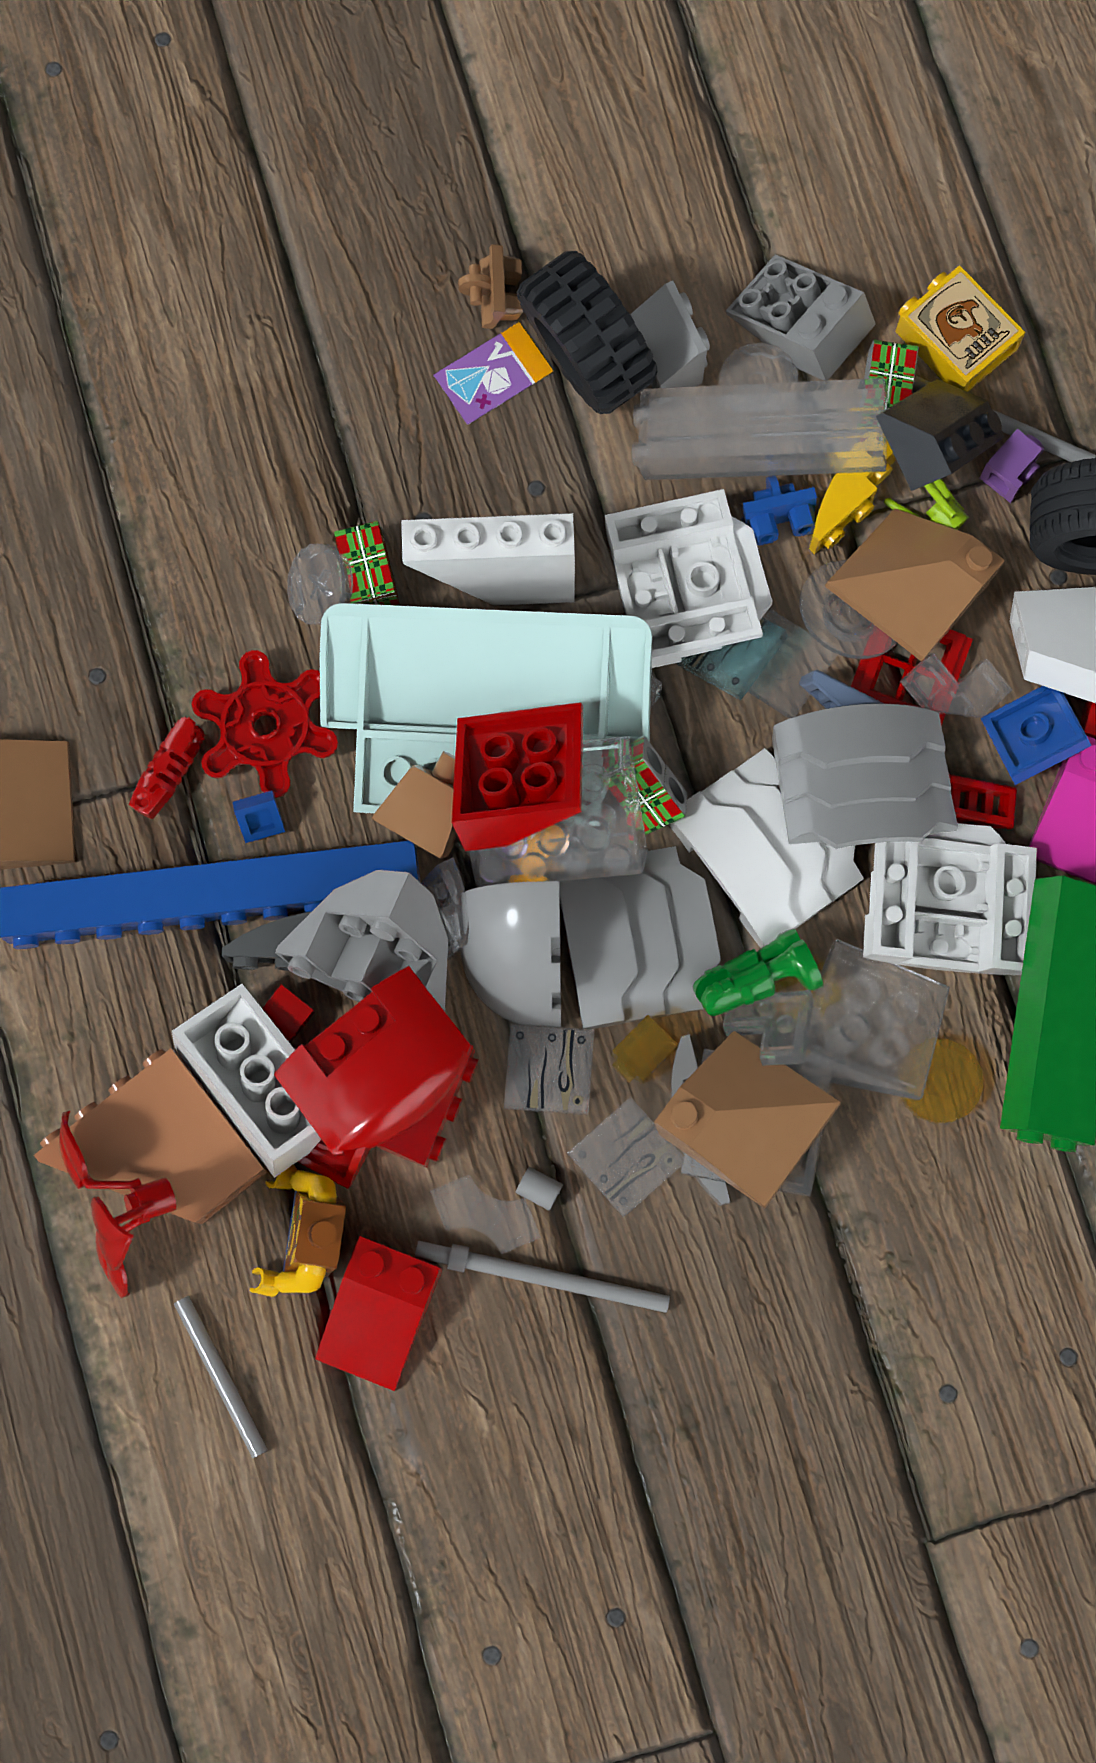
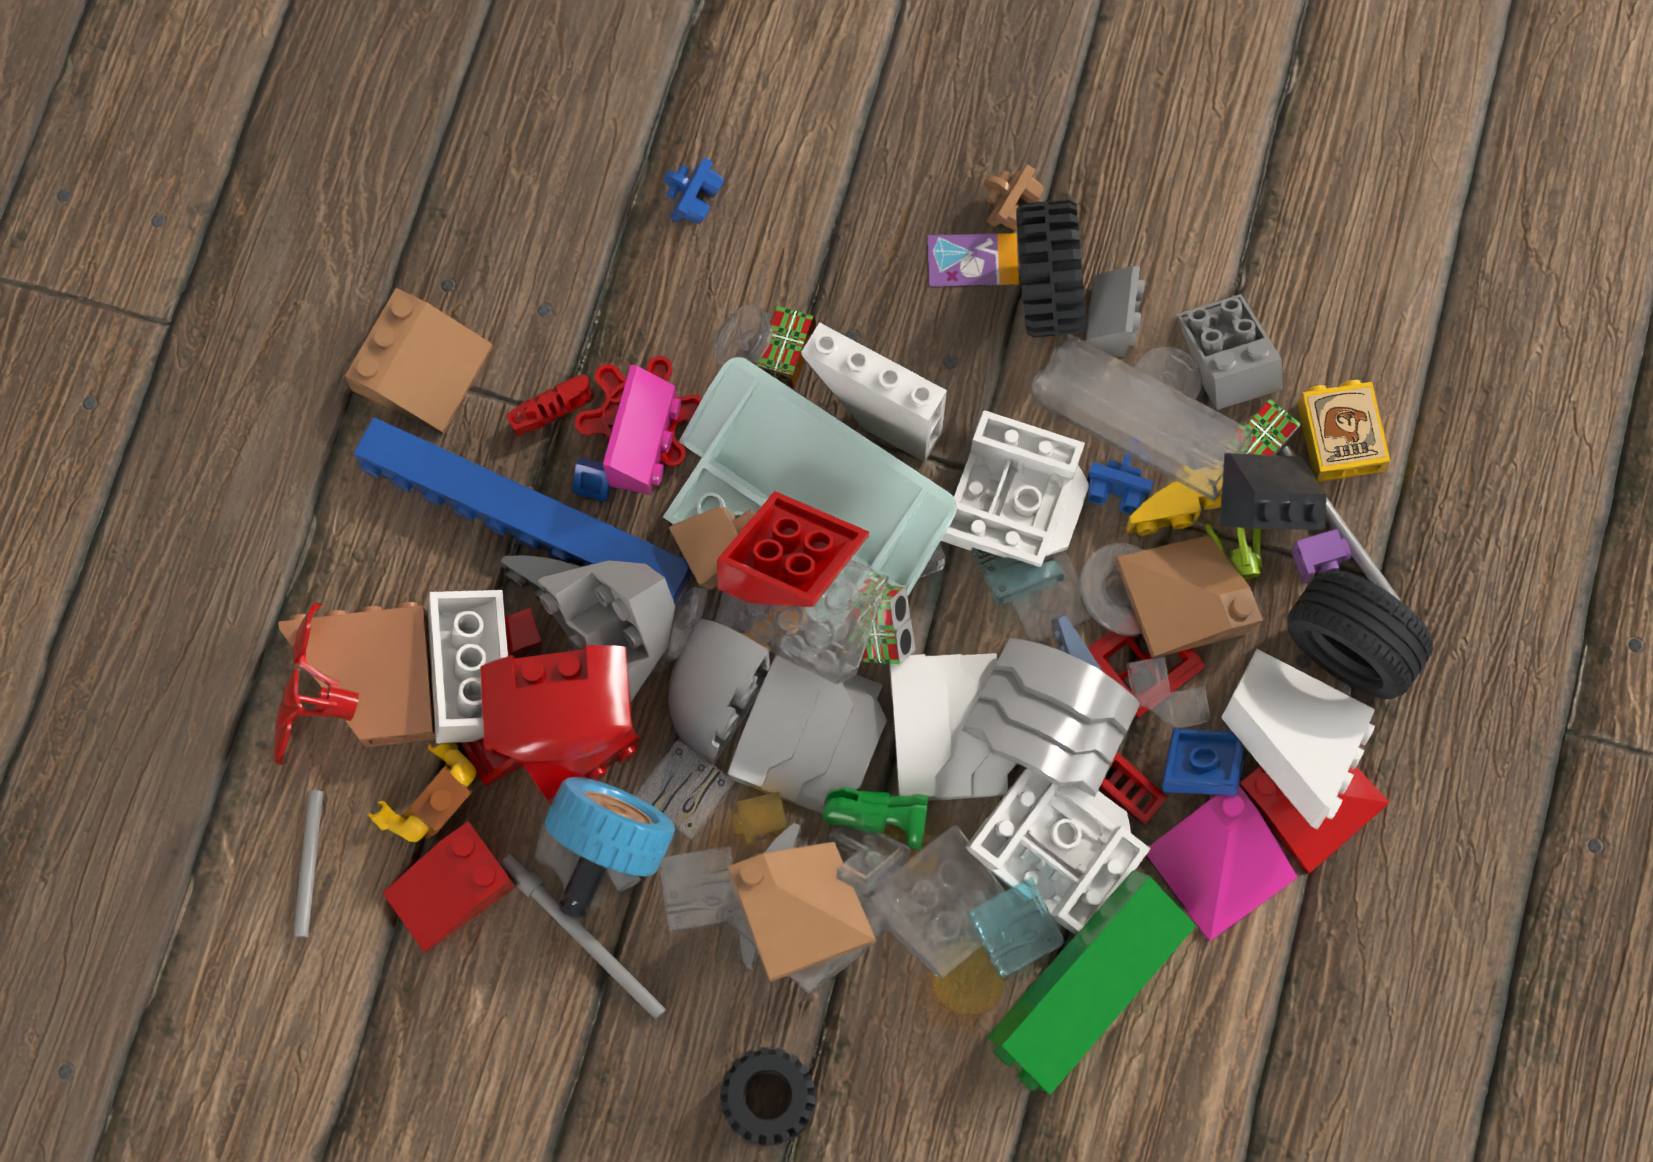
camera: 30 degrees right, 5 degrees down
(171, 450) = (701, 179): none -> blue hips
(282, 739) = (641, 432): none -> dark pink slope
(506, 1161) = (607, 832): none -> dark azure wheel
(864, 1312) = (761, 1063): none -> black tyre
(957, 1004) = (1015, 927): none -> clear light blue tile

